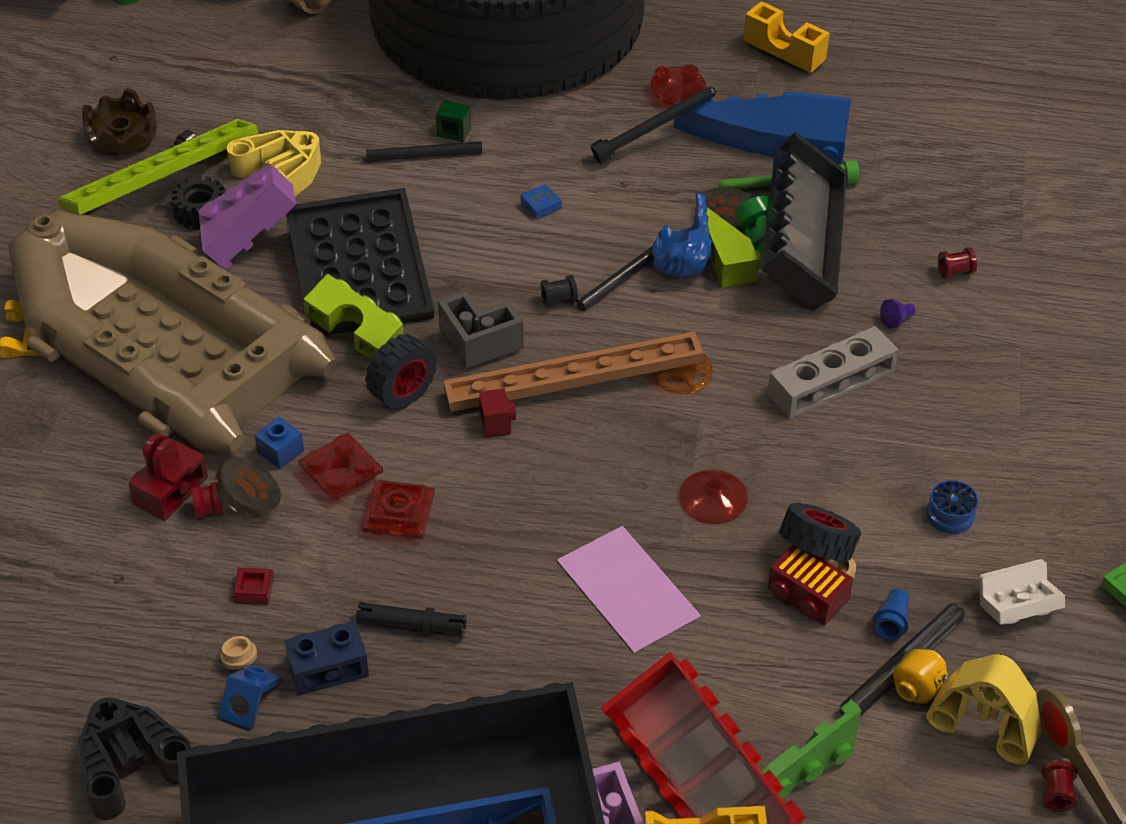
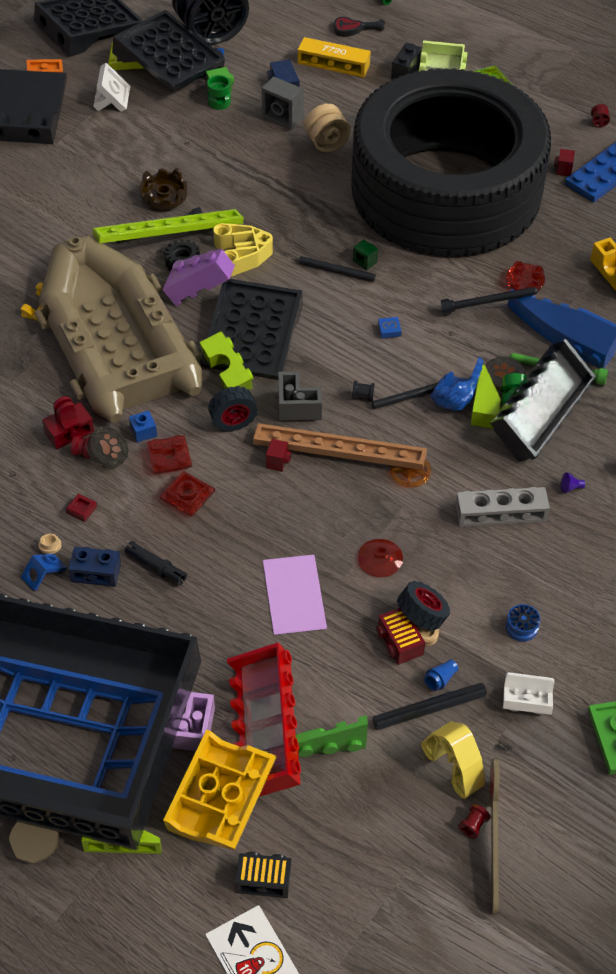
camera: 25 degrees right, 5 degrees up
(920, 675) = (431, 718): yellow head -> none

